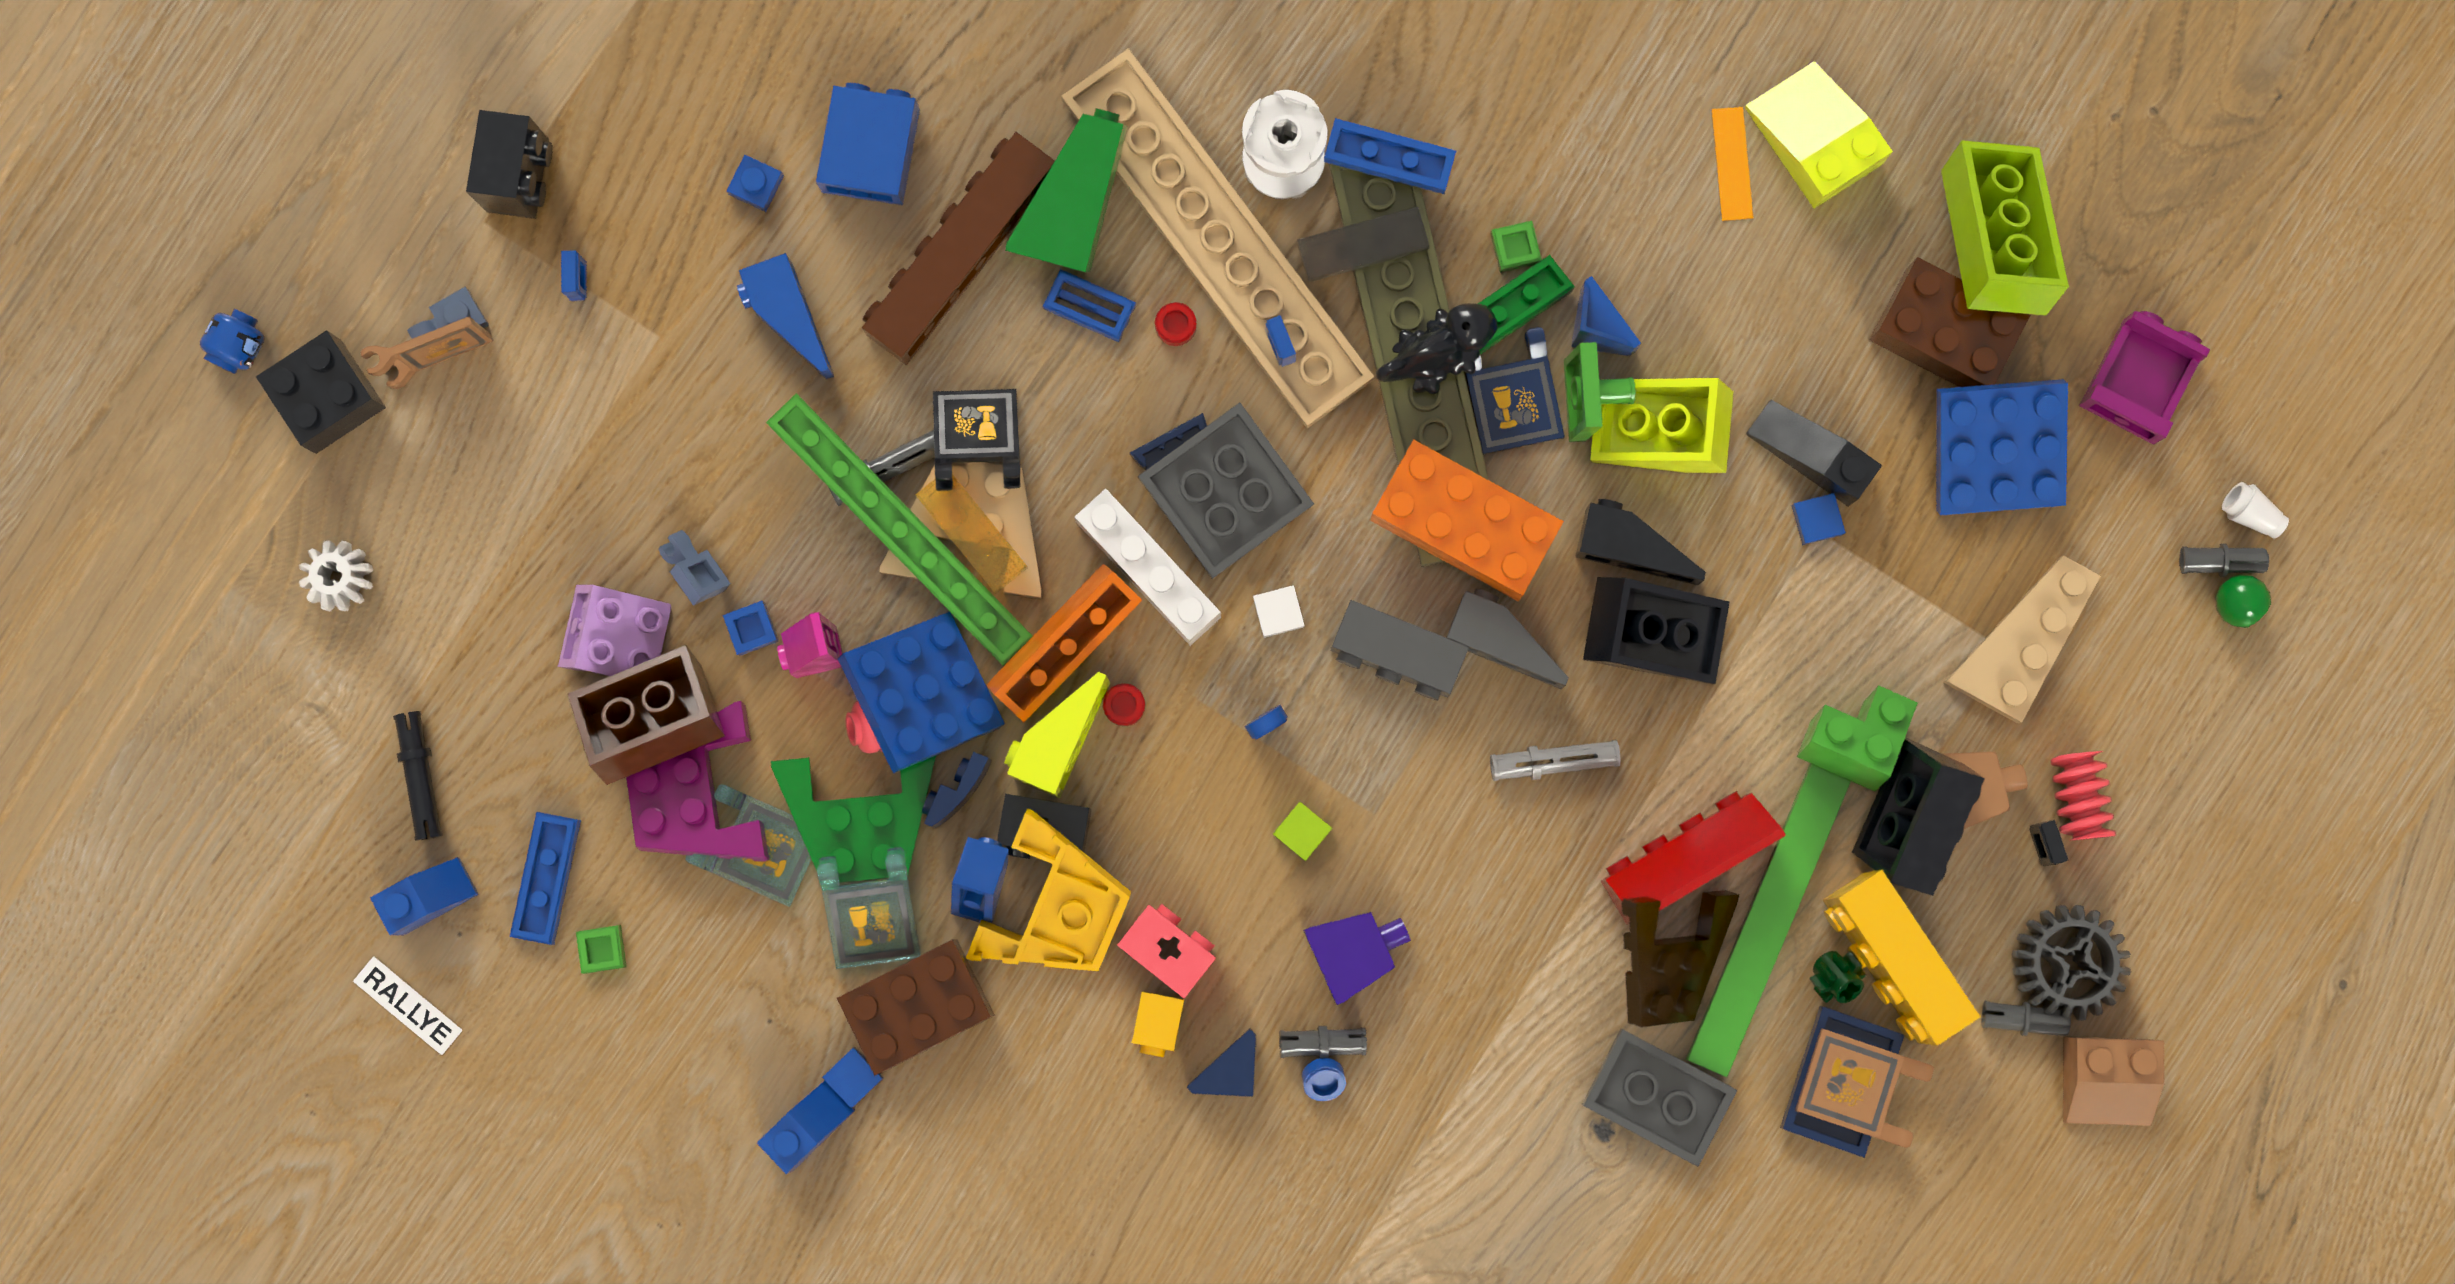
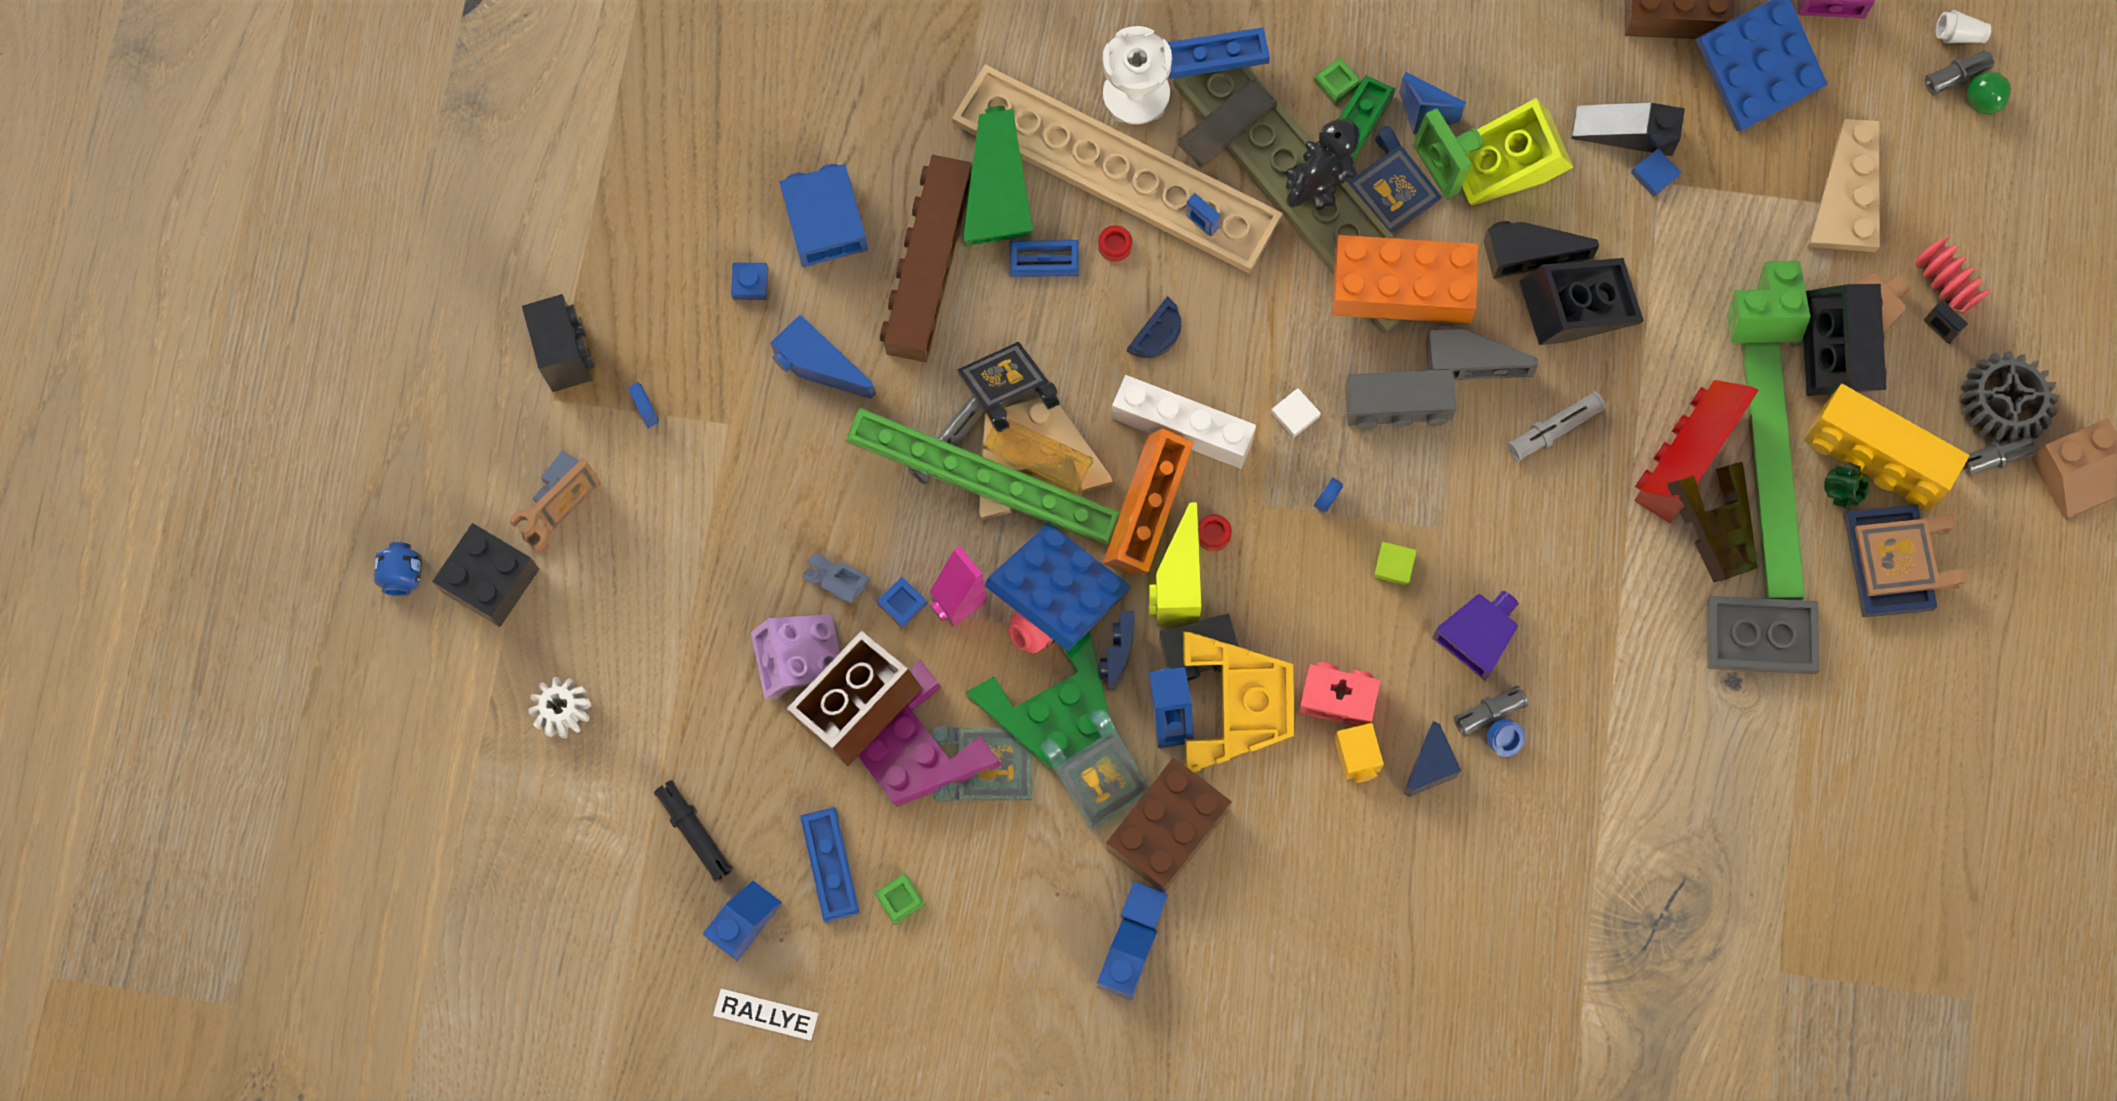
camera: 25 degrees left, 10 degrees down
(1225, 490) = (1213, 342): dark grey plate -> none

